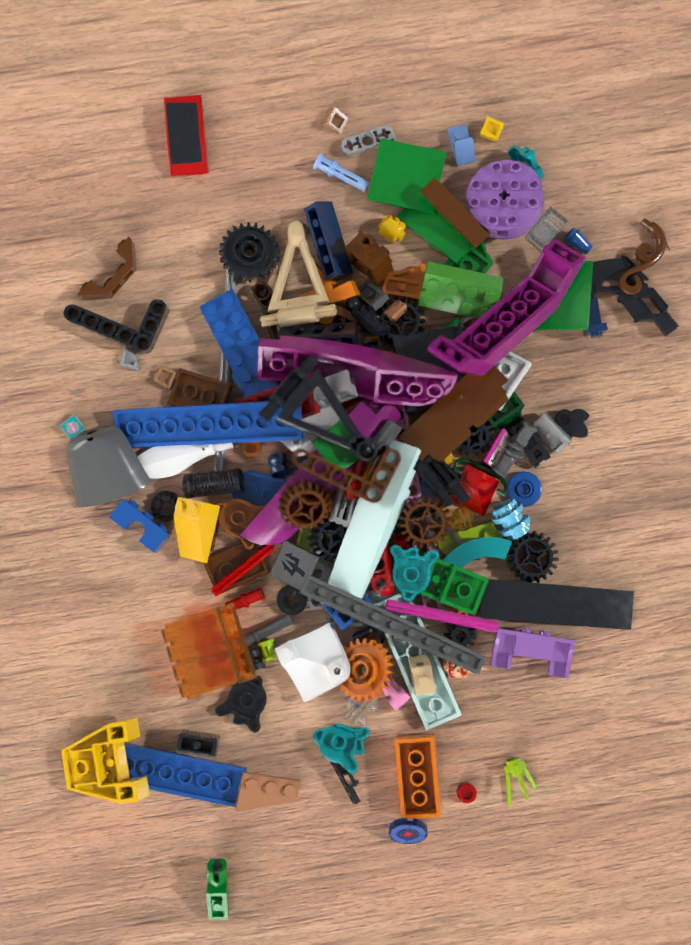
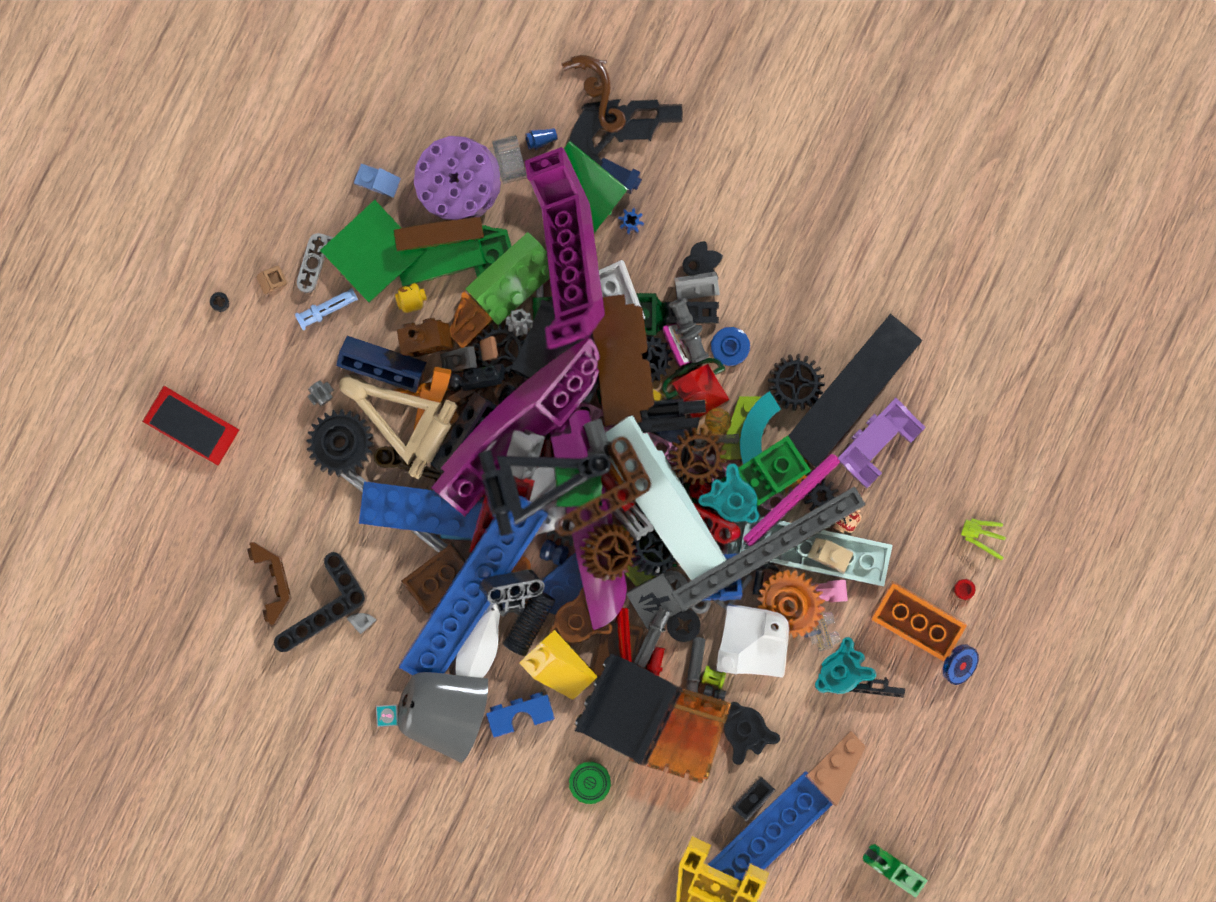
camera: 50 degrees left, 0 degrees up
(126, 612) = (589, 782): none -> green tile
(156, 505) = (510, 687): black gear -> none
(165, 377) = (400, 599): medium nougat tile -> none
(198, 603) = (628, 709): none -> black panel
(226, 452) = (511, 590): none -> black piece
(267, 582) = (652, 636): none -> dark grey axle
(275, 212) = (320, 393): none -> dark grey gear
(294, 99) = (216, 307): none -> black bush
(431, 318) = (519, 322): none -> light grey gear
(491, 129) = (382, 143): yellow plate -> none
(510, 517) = (749, 377): medium azure piece -> none
(527, 156) = (424, 136): teal piece -> none
(559, 351) = (632, 215): none -> blue gear

